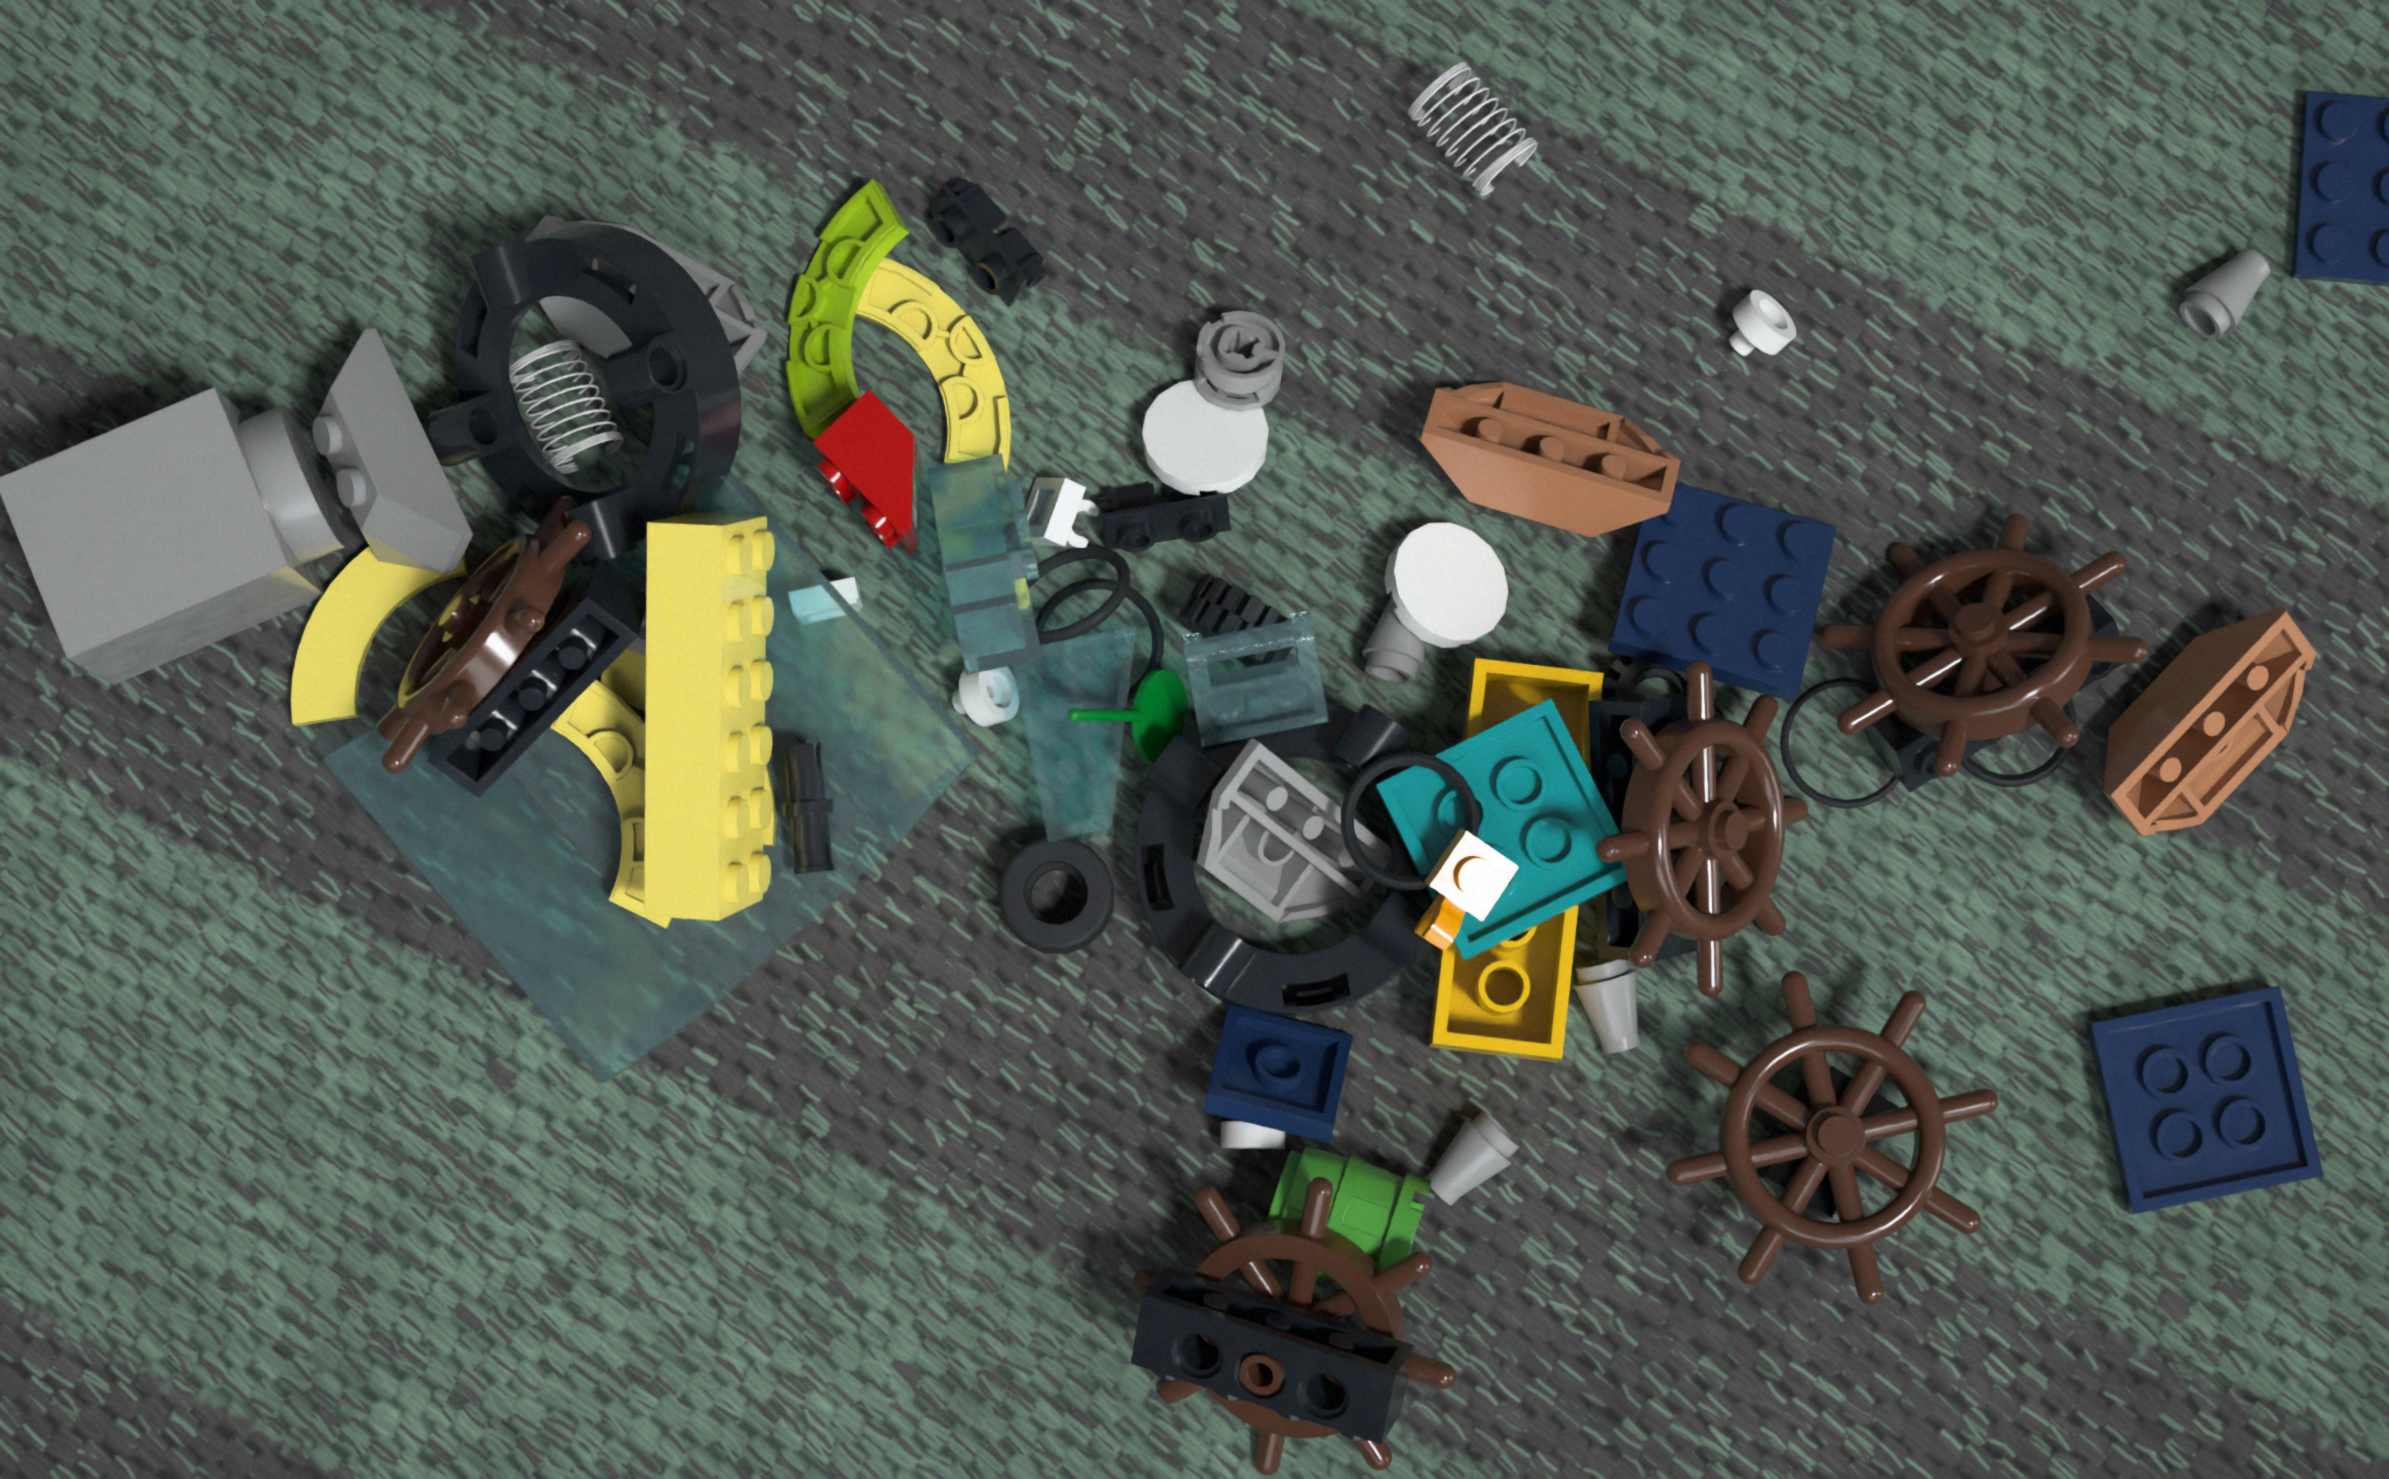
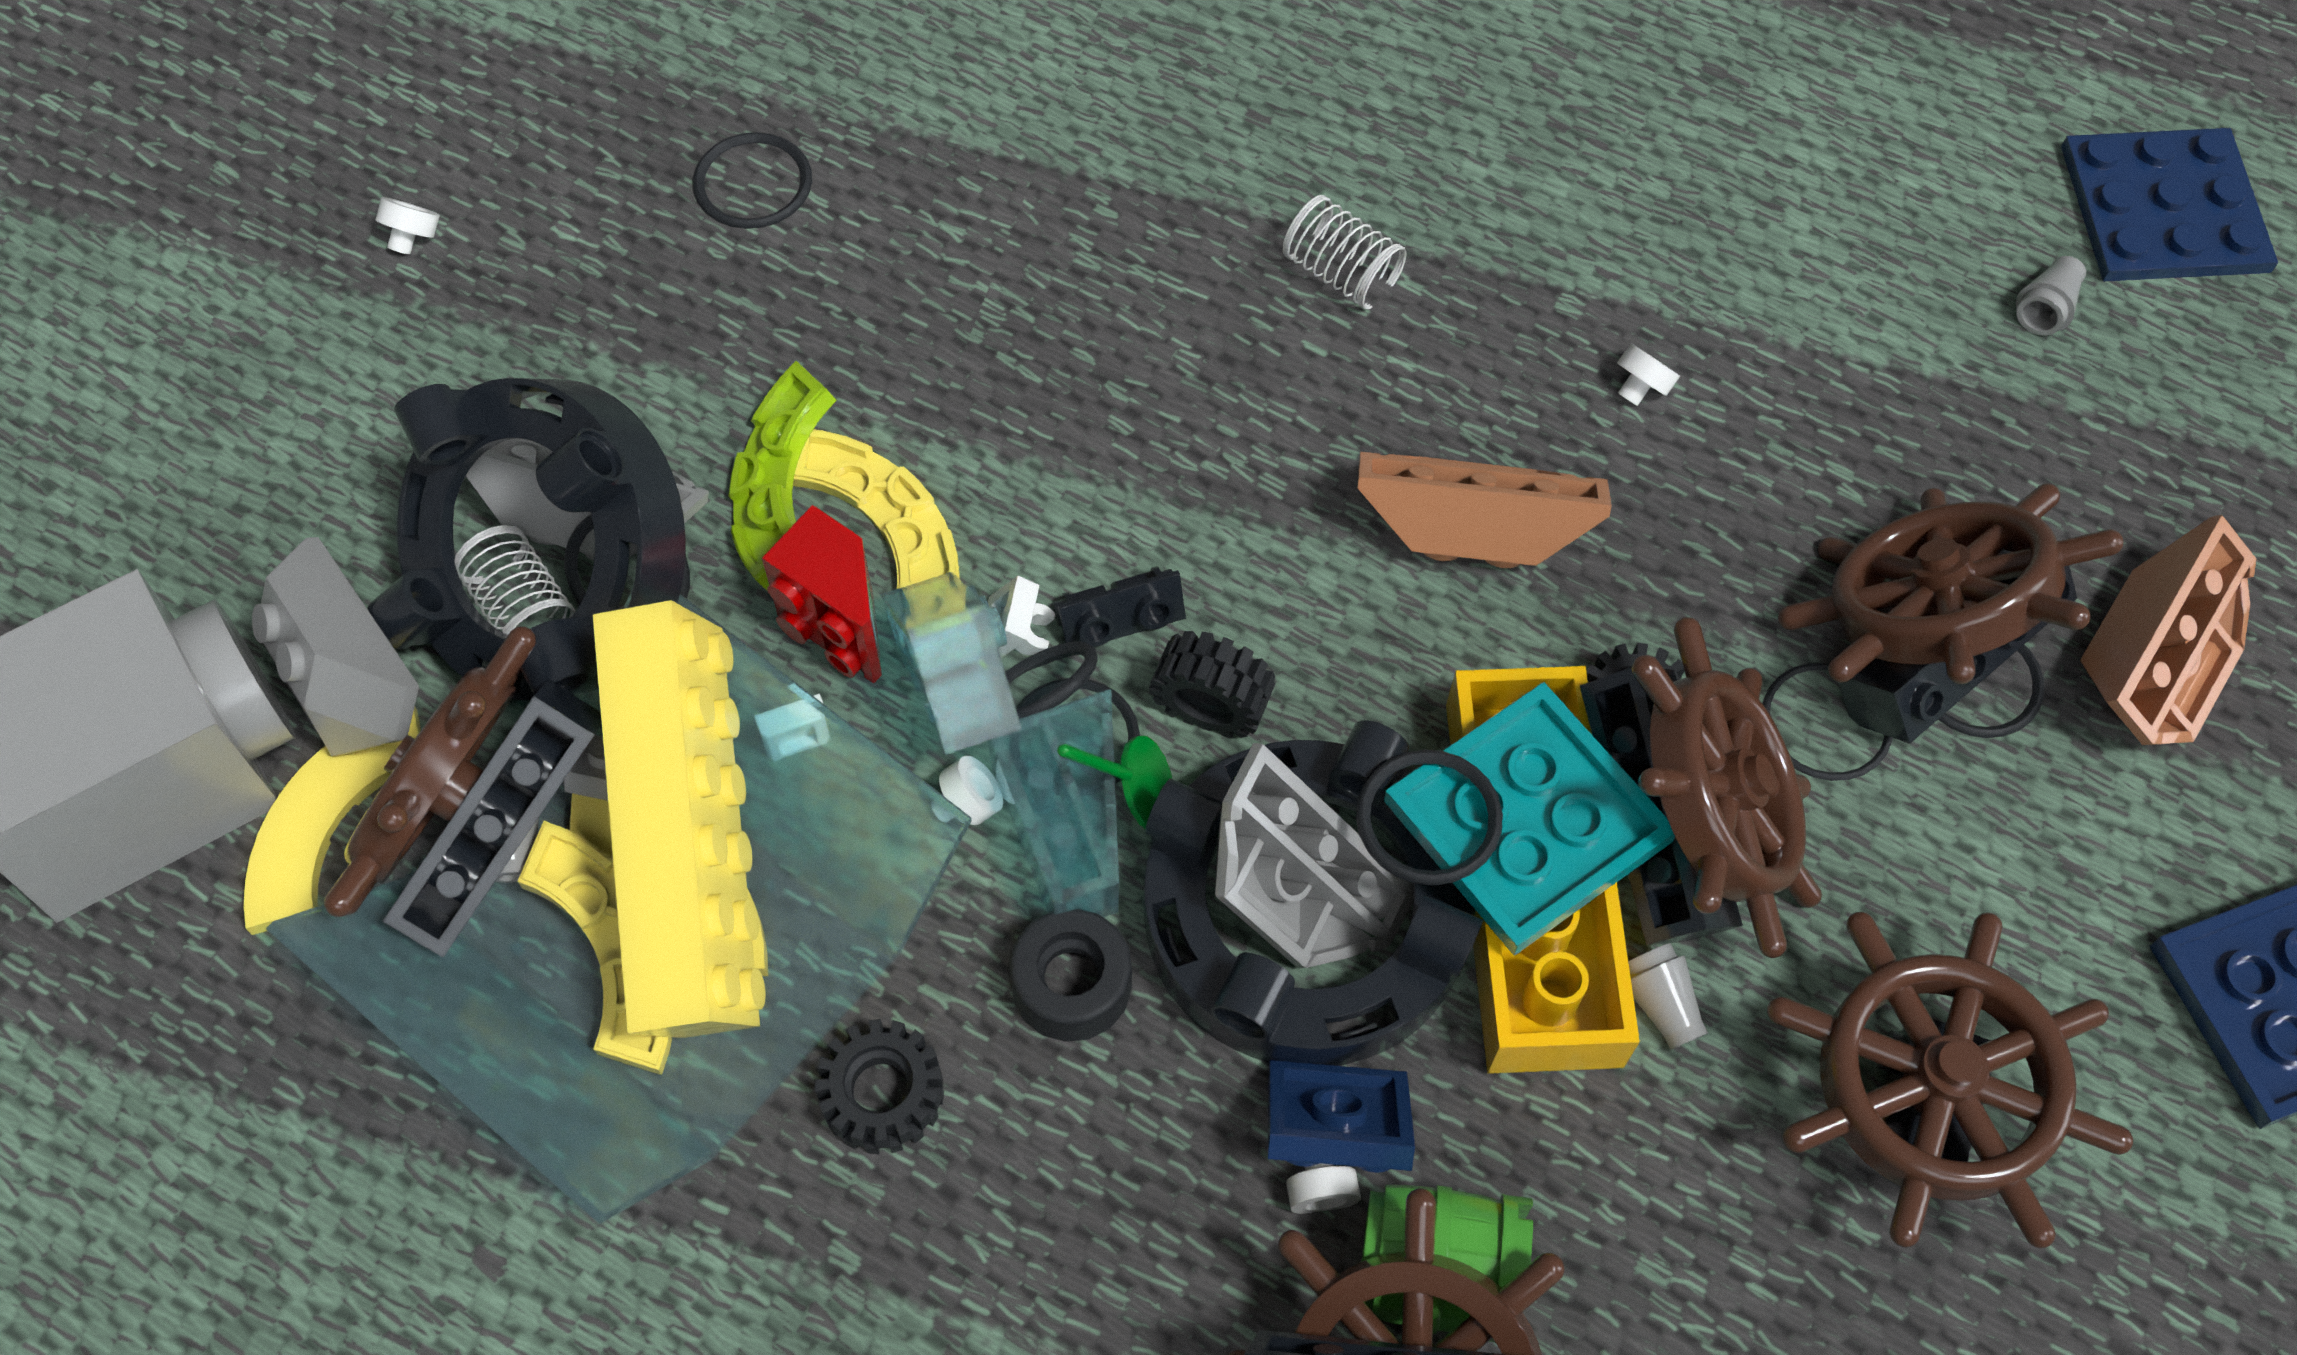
camera: 10 degrees left, 20 degrees down
(807, 808) = (798, 926): black pin -> none
(827, 965) = (866, 1049): none -> black tyre
(966, 221) = (900, 398): black hinge -> none
(1201, 444) = (1146, 532): white tile -> none
(1240, 358) = (1169, 462): light grey wheel -> none
(1256, 697) = (1220, 741): clear light blue plate -> none
(1393, 650) = (1371, 683): light grey cone -> none
(1446, 584) = (1407, 626): white tile -> none
(1468, 880) = (1506, 863): plate -> none
(1472, 1157) = (1564, 1175): light grey cone -> none
(1725, 589) = (1653, 571): dark blue plate -> none

